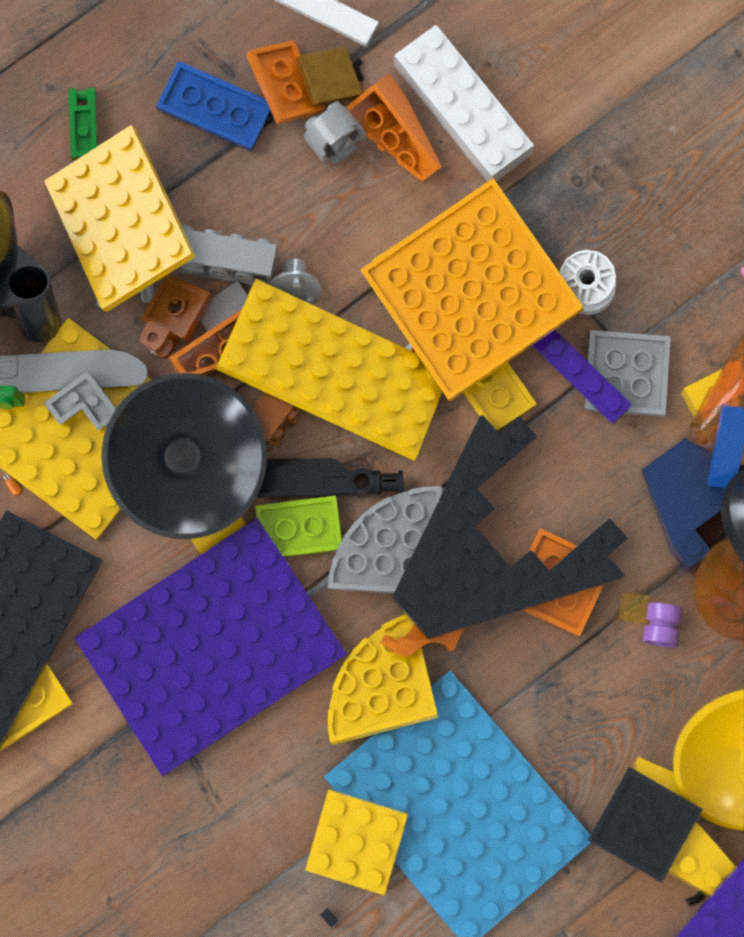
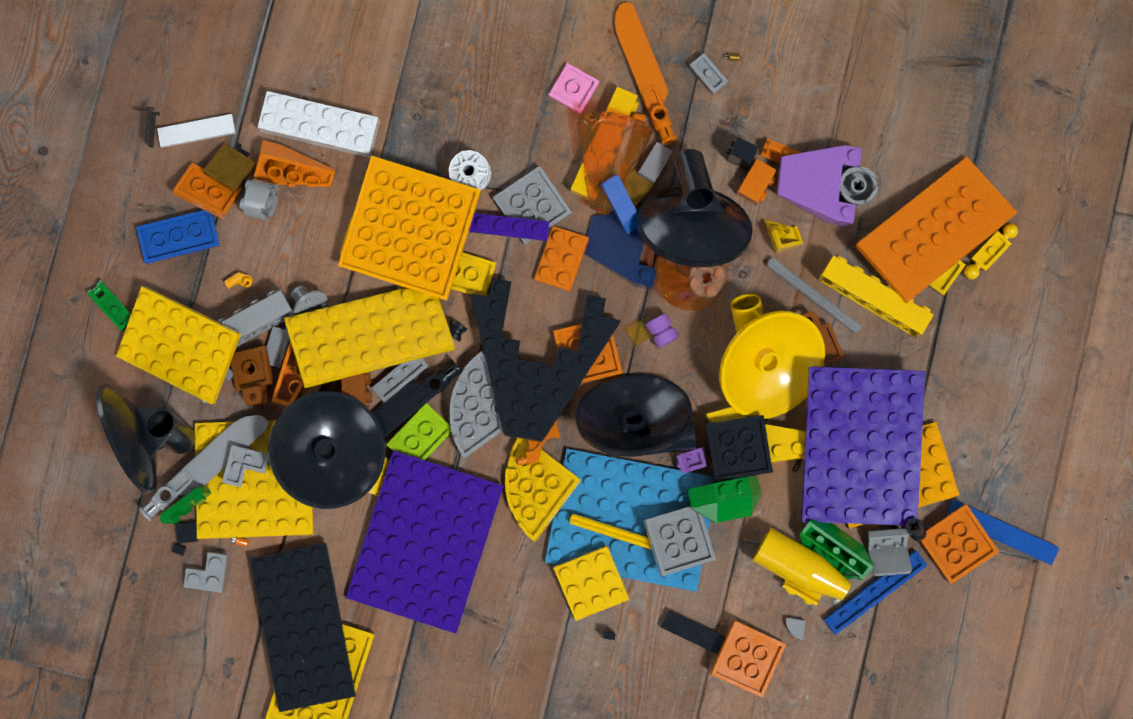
camera: 40 degrees left, 5 degrees up
(242, 202) = (239, 278): none -> light orange arm
(328, 445) = (399, 378): none -> light grey plate
(429, 808) = (611, 531): none -> yellow axle
(433, 443) = (456, 330): none -> black wheel
(494, 873) = (679, 540): none -> light grey plate
(557, 696) = (636, 416): none -> black dish
(580, 797) = (692, 460): none -> medium lavender bracket
(584, 870) = (726, 499): none -> green wedge
(612, 457) = (561, 259): none -> orange plate

